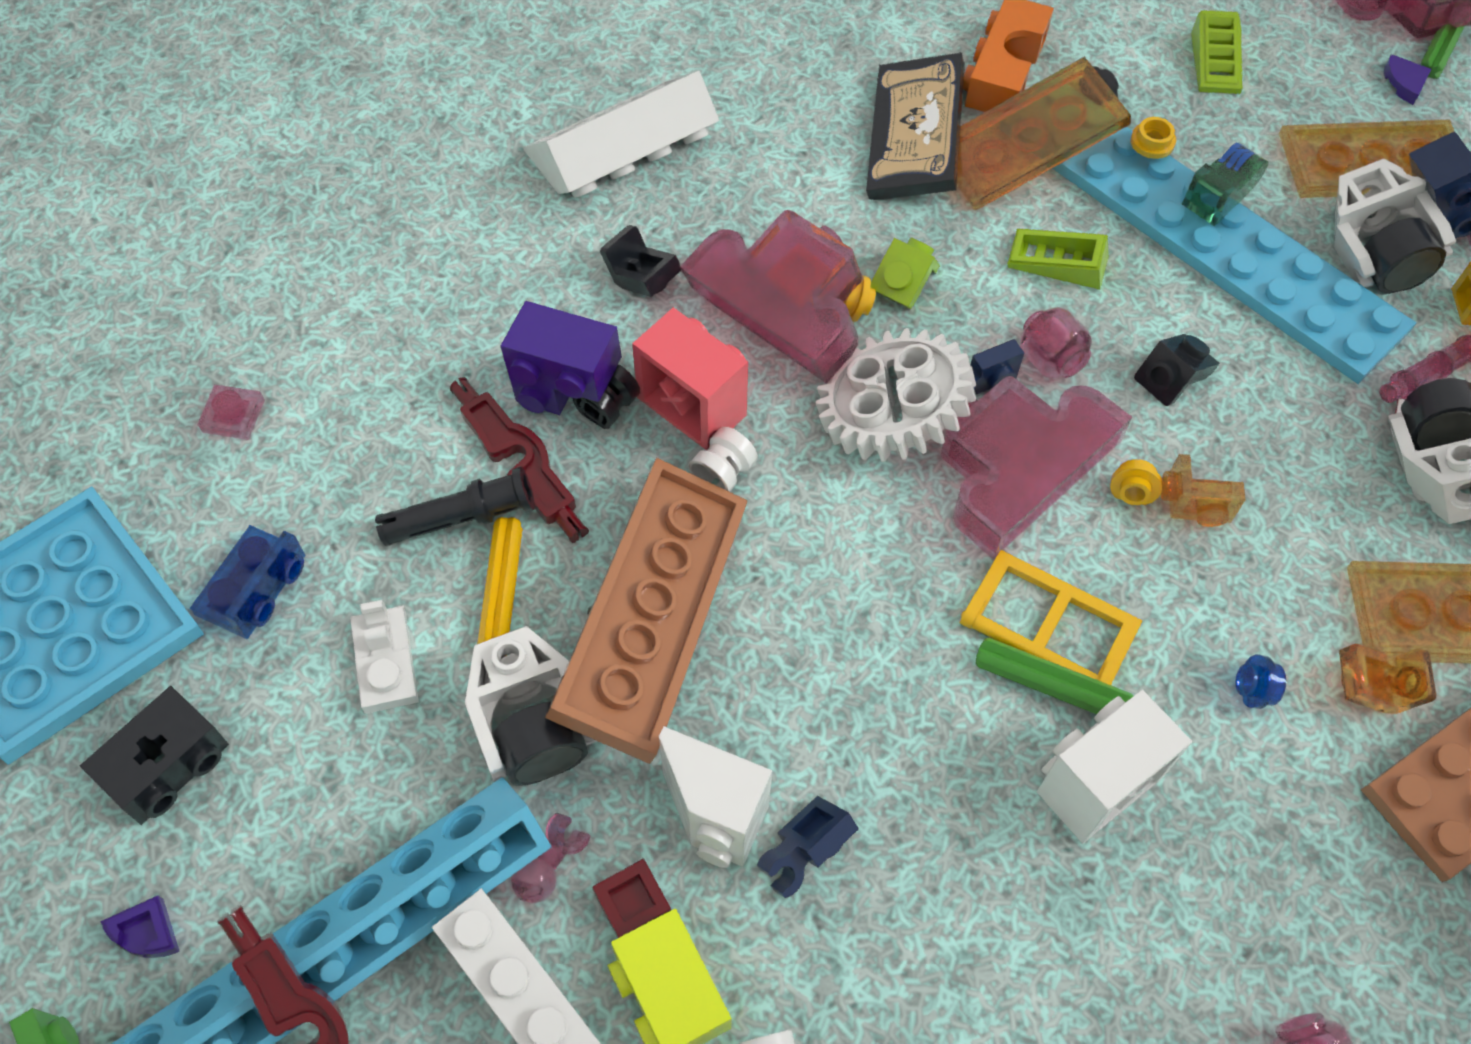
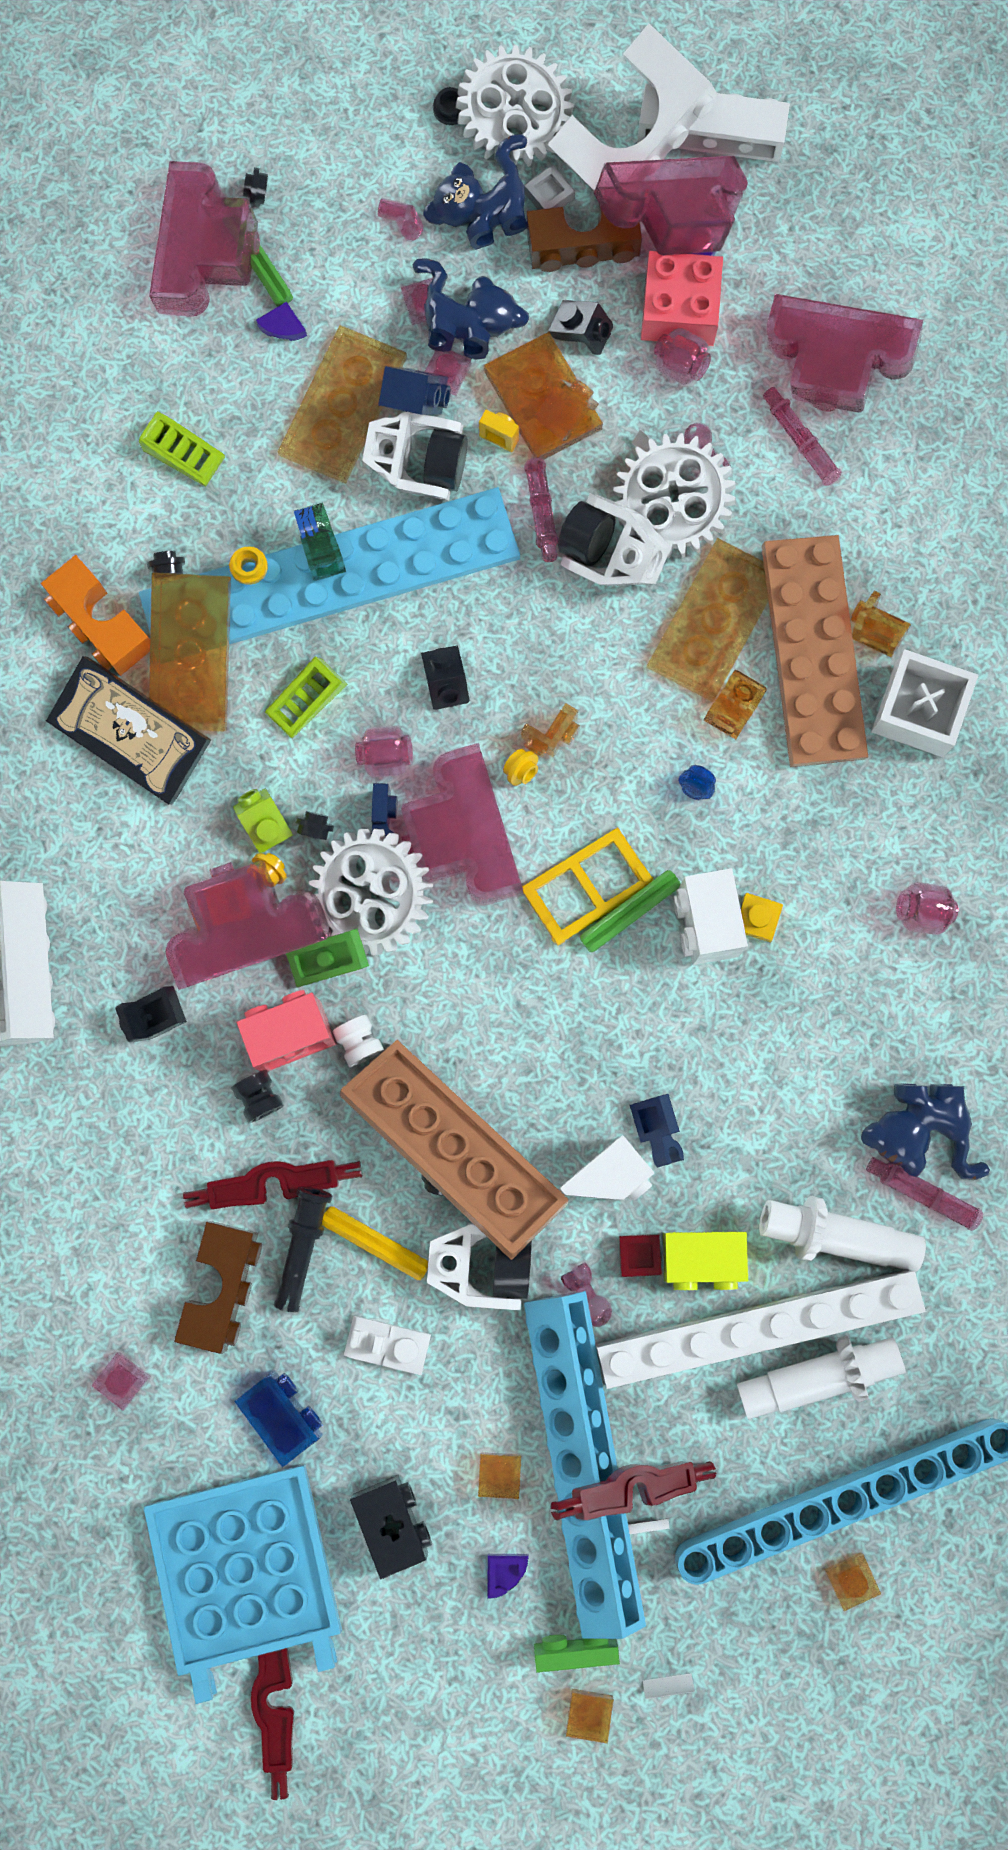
camera: 60 degrees left, 20 degrees up
(268, 860) = (499, 1475): none -> clear orange plate
(415, 448) = (231, 1254): none -> reddish brown arch
(558, 357) = (223, 1119): dark purple brick -> none
(797, 387) = (328, 958): none -> bright green plate
(931, 316) = (314, 825): none -> black plate
(1149, 842) = (760, 916): none -> yellow plate

